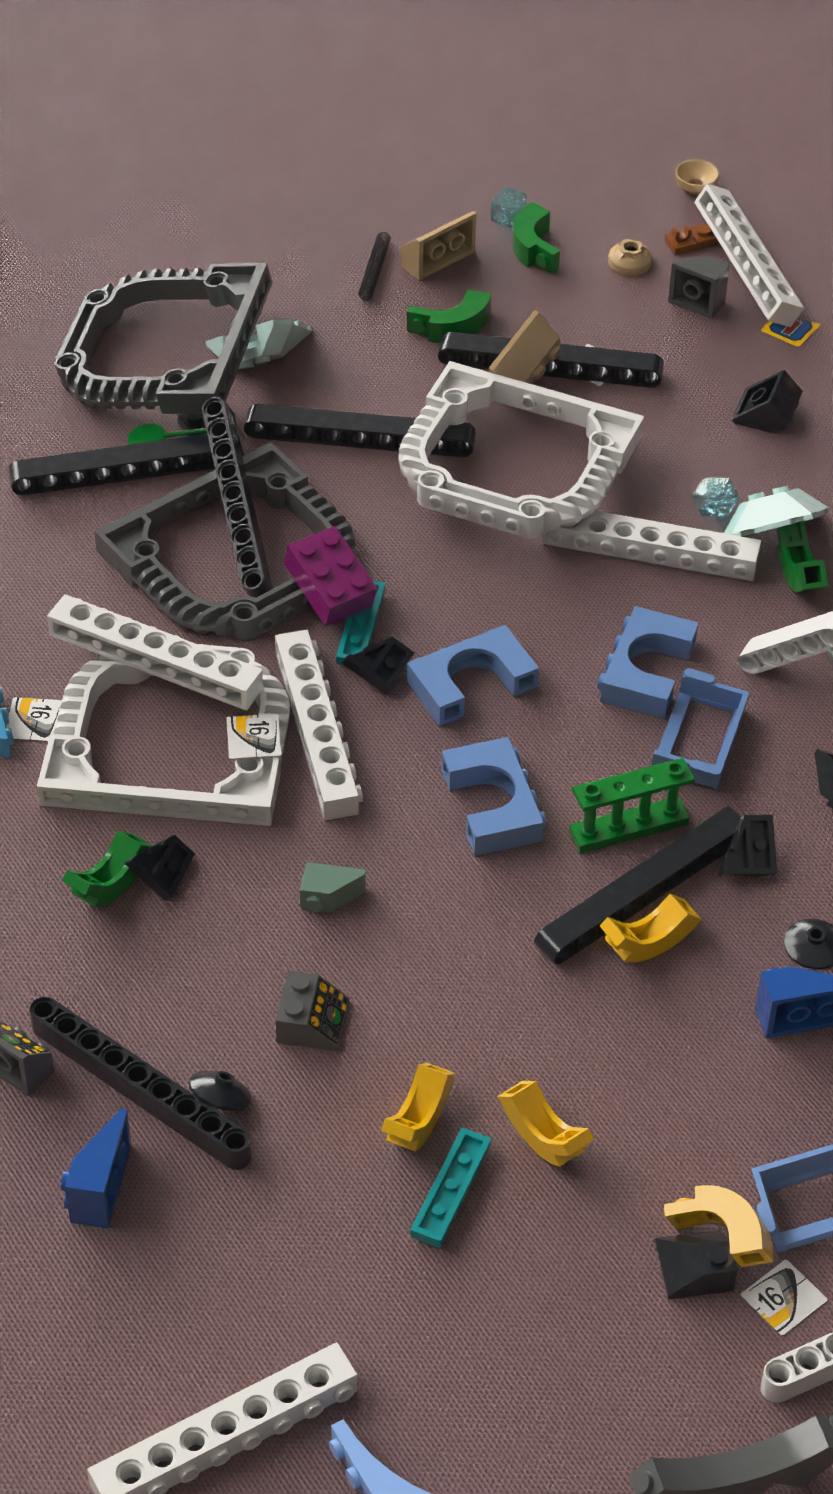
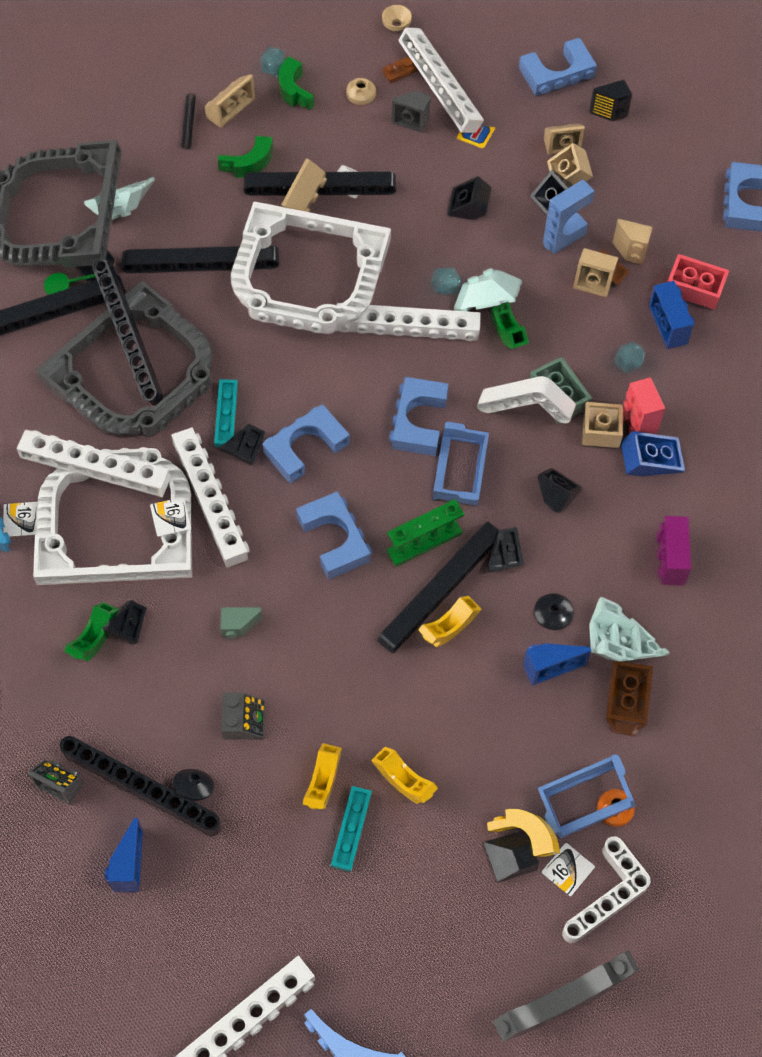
camera: 10 degrees left, 15 degrees up
(330, 575) = (200, 385): magenta brick -> none

